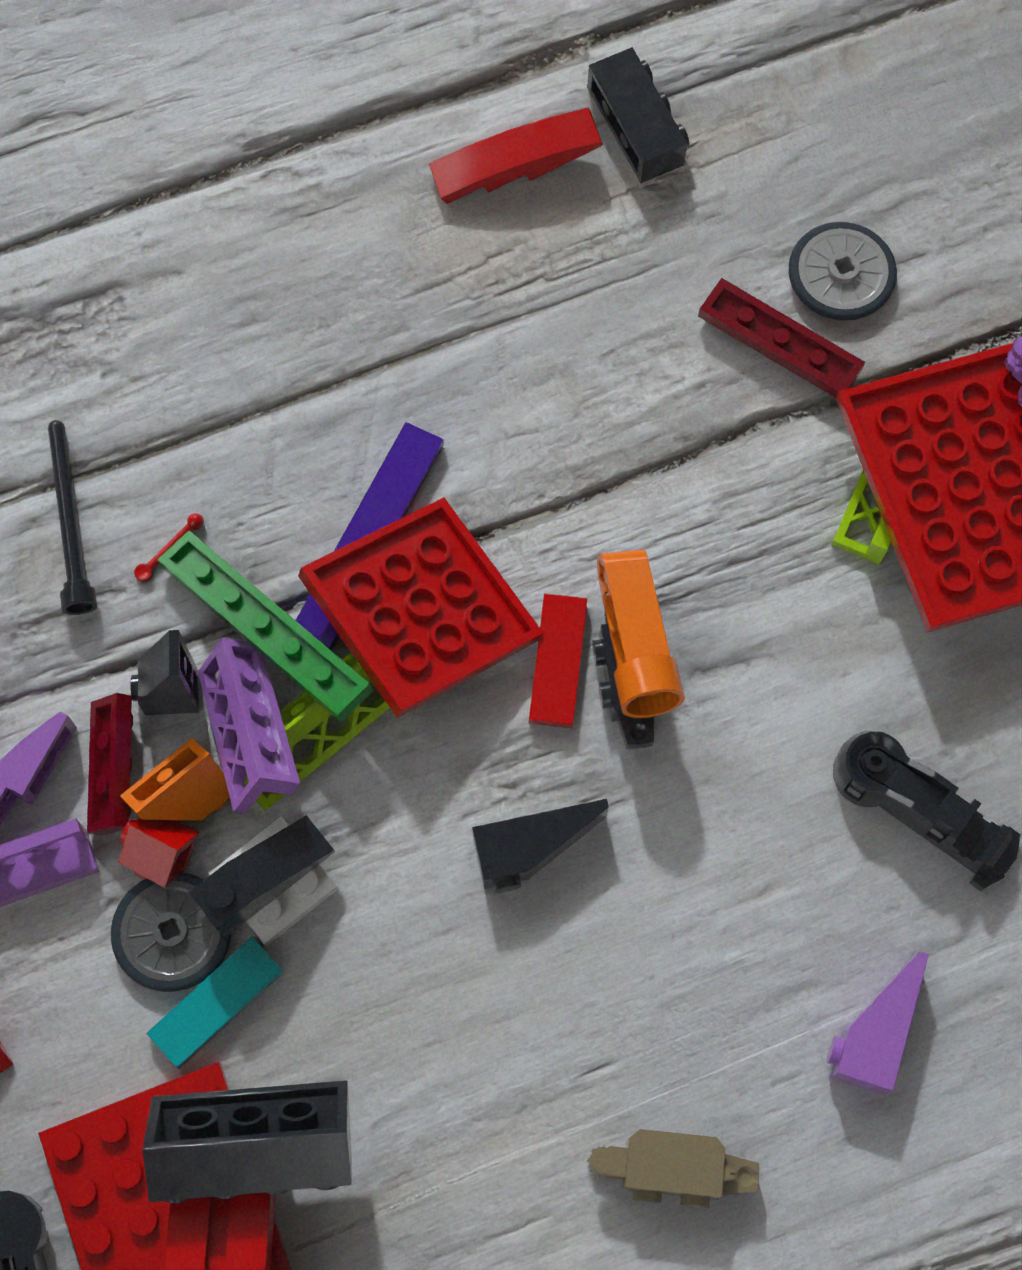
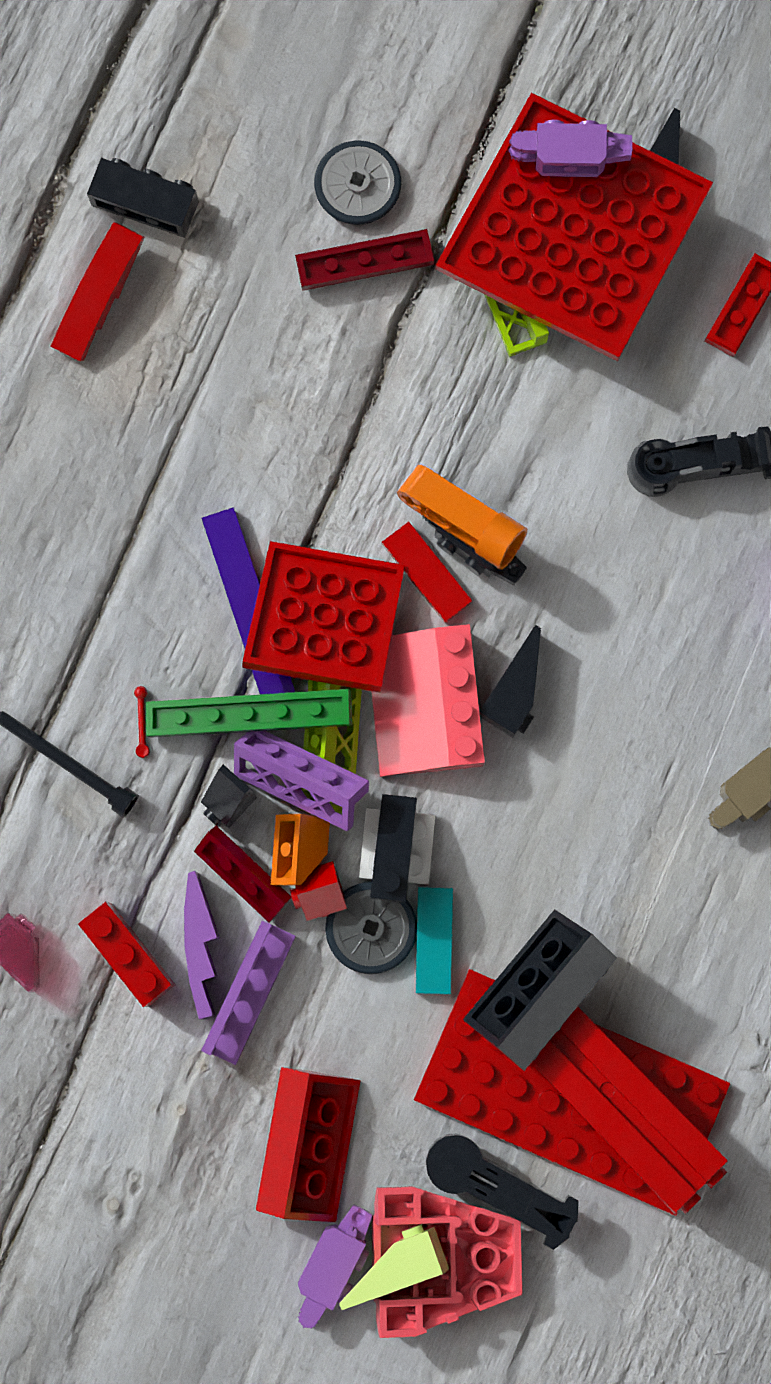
camera: 40 degrees left, 10 degrees up
(437, 778) = (428, 704): none -> coral slope

